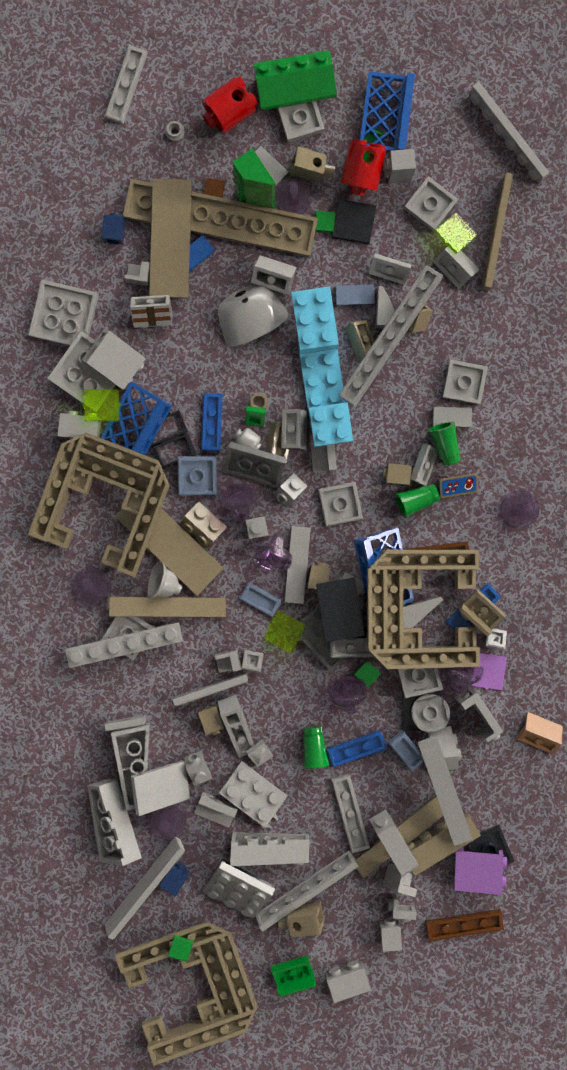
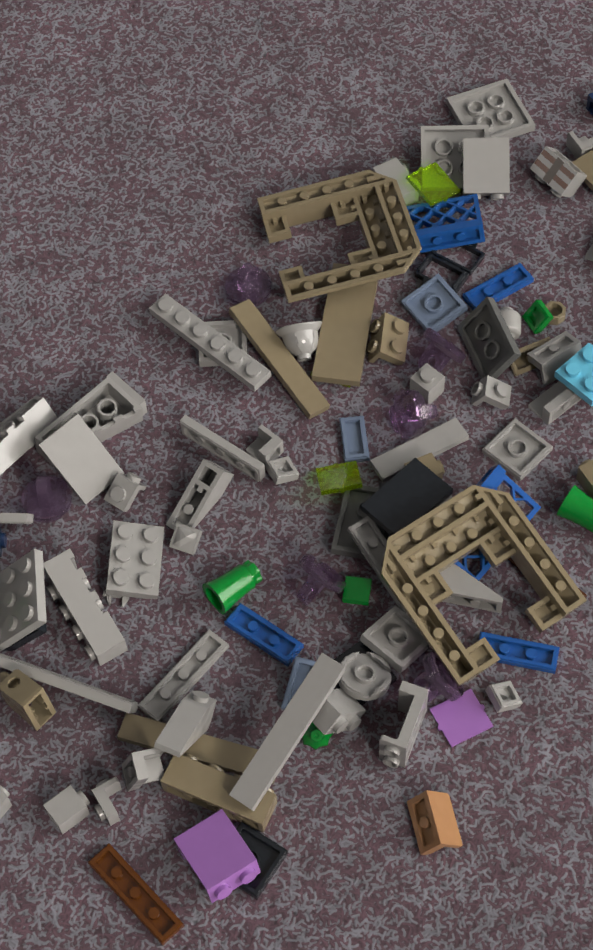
camera: 60 degrees right, 30 degrees down
(211, 719) = (186, 466): dark tan brick -> none
(216, 809) = (90, 537): light grey panel -> none
(481, 612) = (521, 653): dark tan bracket -> none

